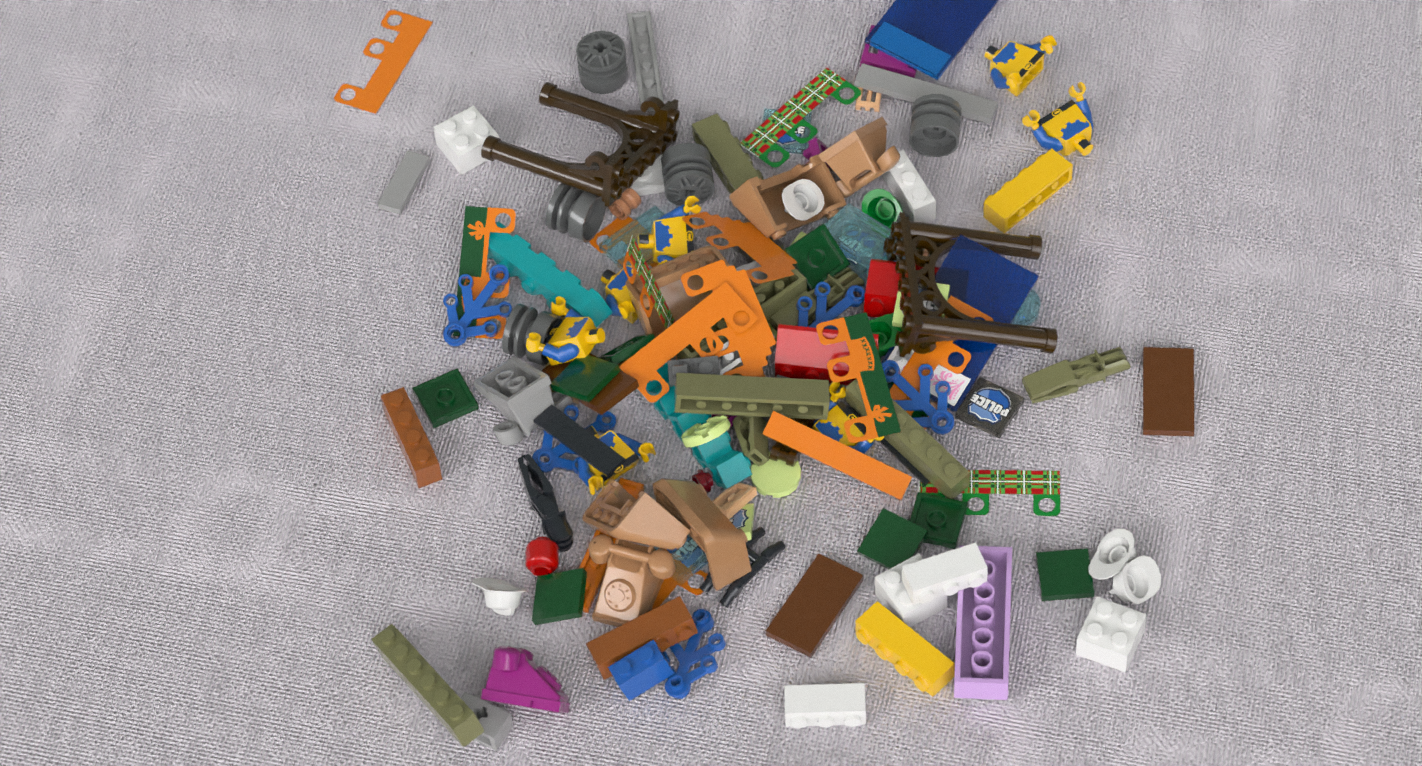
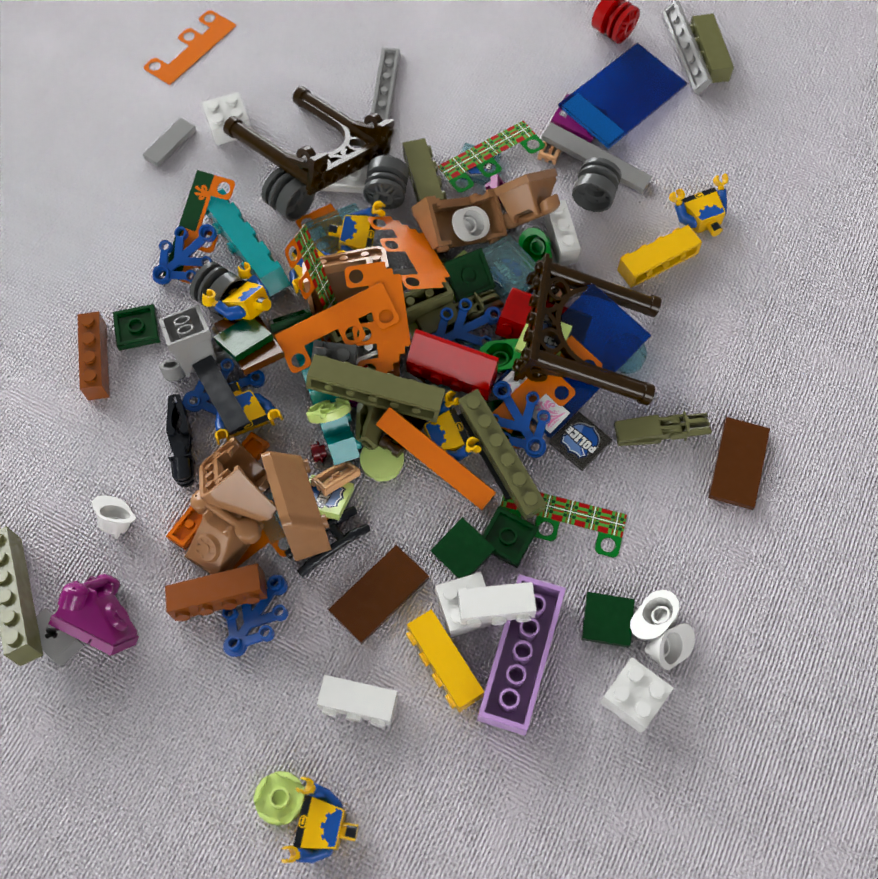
camera: 10 degrees right, 10 degrees up
(542, 556) = (160, 490): red head -> none
(559, 596) = (162, 532): dark green tile -> none
(602, 62) = (349, 79): dark grey wheel -> none
(628, 201) = (331, 195): nougat wheel -> none
(641, 670) = (204, 624): blue brick -> none
(867, 368) = (480, 386): piece -> none
(1018, 63) = (676, 149): torso -> none

